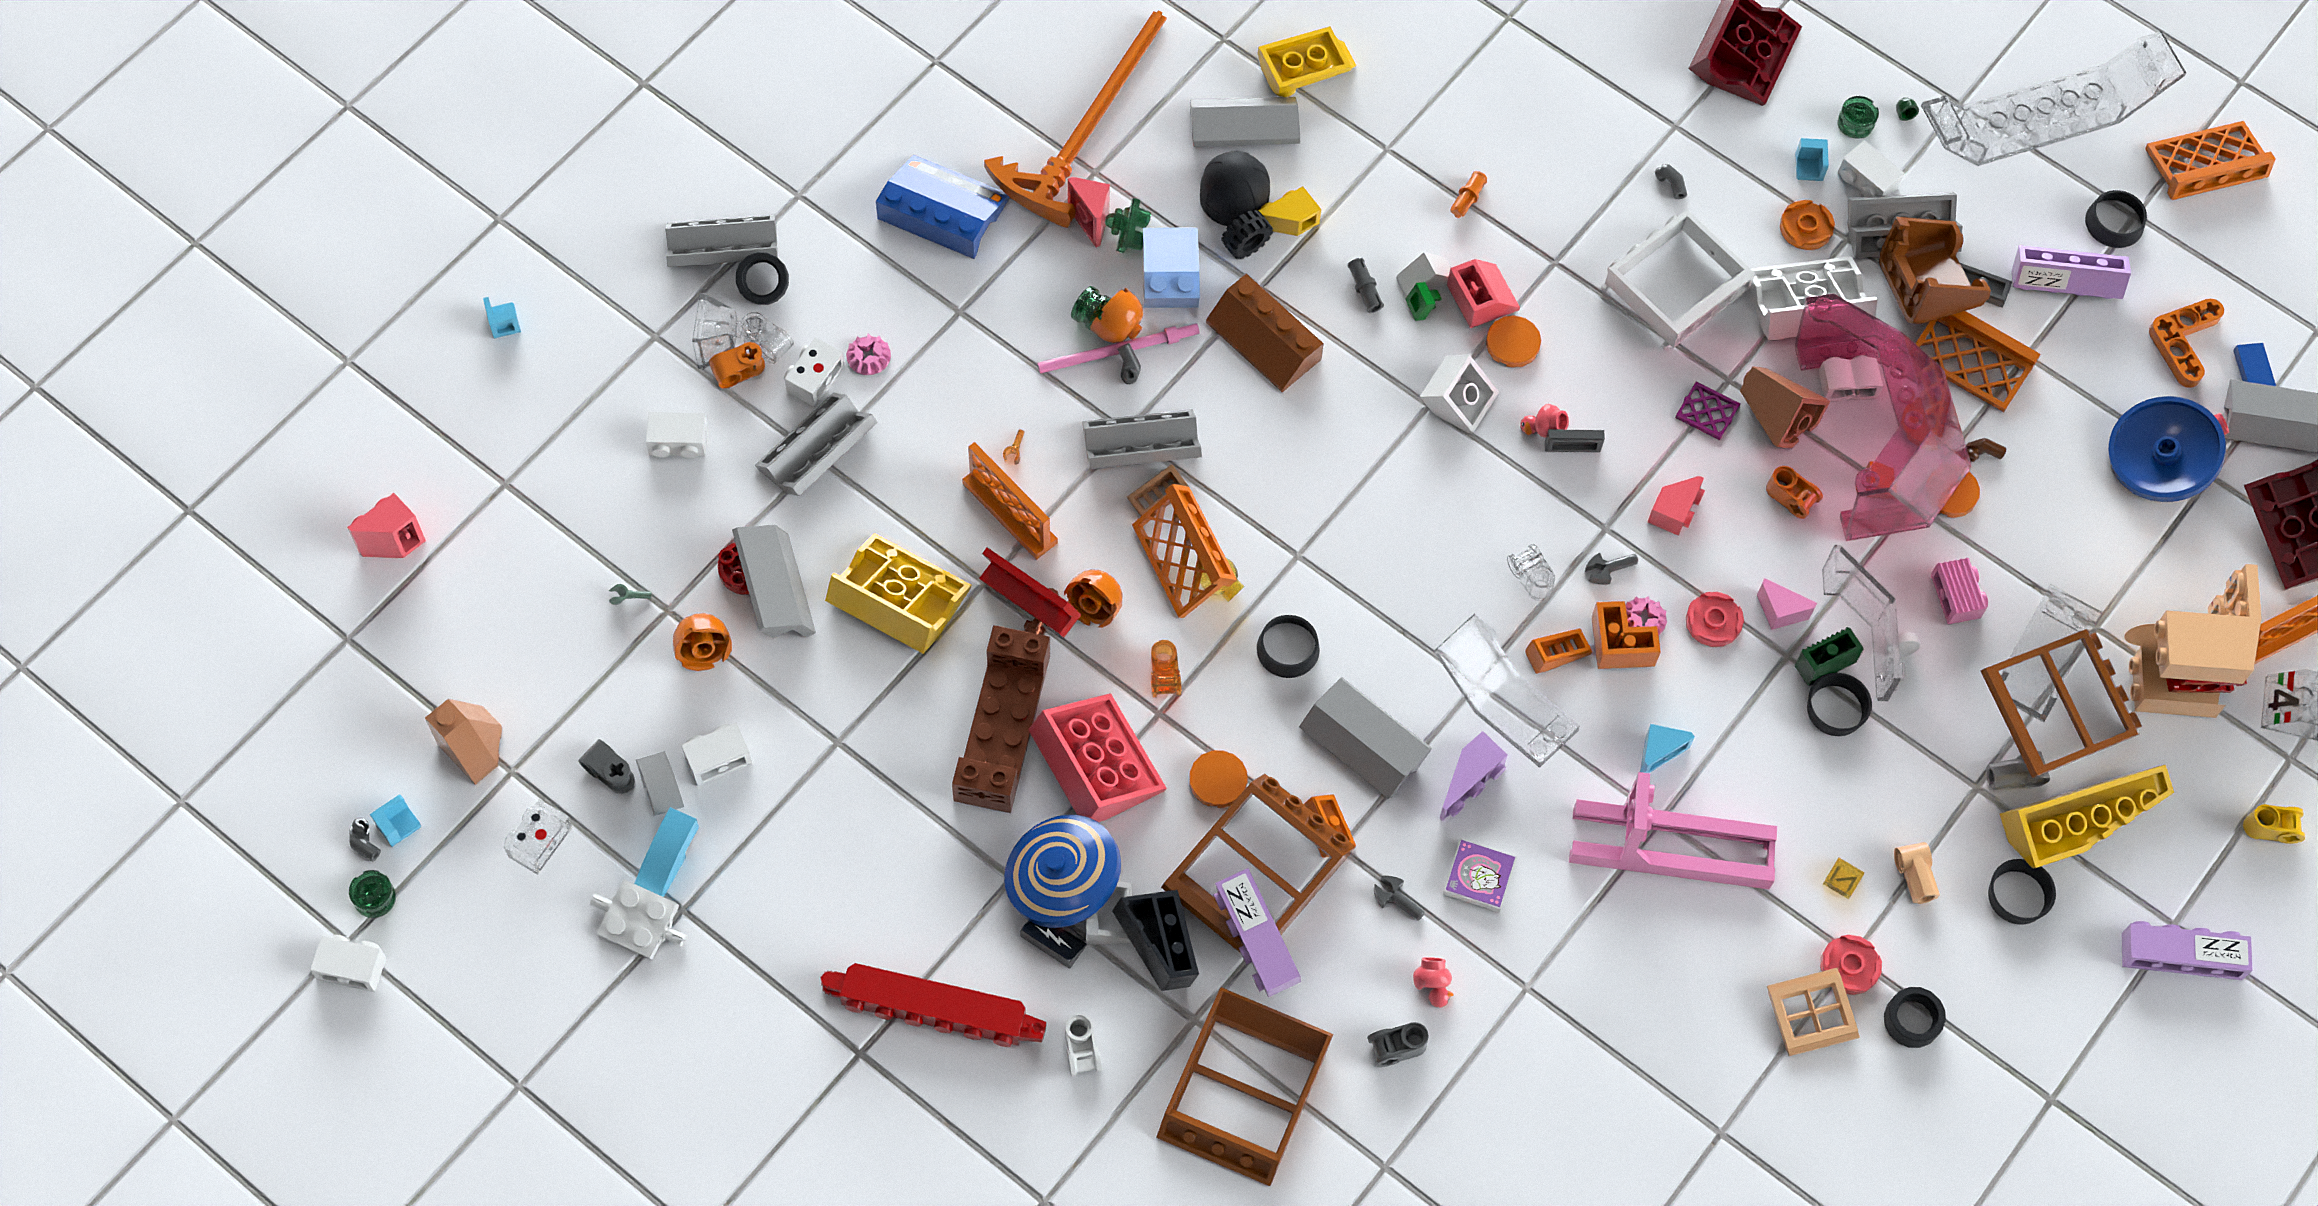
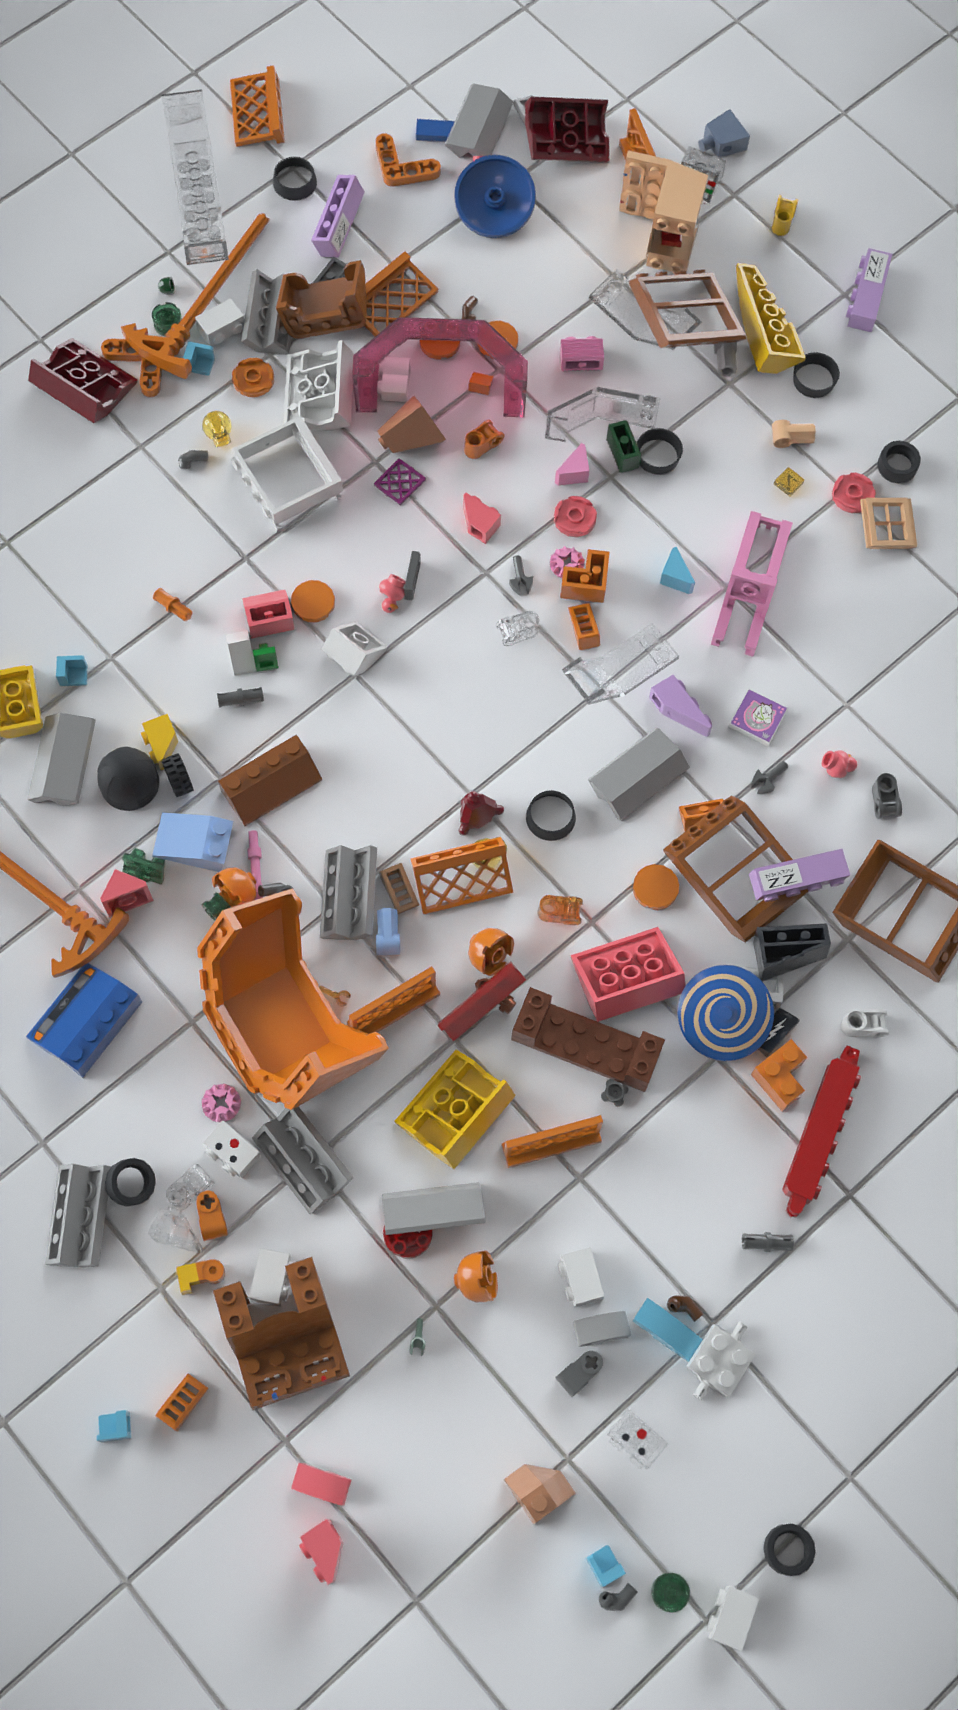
camera: 80 degrees left, 5 degrees up
(415, 1001) = (809, 1547): none -> black tyre
(458, 521) = (321, 1484): none -> coral slope
(524, 362) = (176, 1424): none -> orange slope
(599, 471) = (286, 1350): none -> dark orange piece
(675, 371) = (198, 1273): none -> leg
(700, 872) = (684, 1304): none -> reddish brown arm
(786, 957) = (767, 1242): none -> dark grey pin
(872, 698) = (552, 1141): none -> orange fence
(941, 756) = (621, 1089): none -> dark grey plate
(988, 378) = (272, 1007): none -> orange windscreen
(995, 942) = (776, 1077): none -> orange brick
(1091, 489) = (387, 938): none -> light blue piece
(1272, 559) = (477, 811): none -> dark red rock
(1357, 109) = (71, 670): none -> medium azure panel
(1719, 195) = (217, 427): none -> clear yellow piece
(1796, 107) = (115, 355): none -> orange beam
(1817, 89) = (179, 333): none -> orange piece

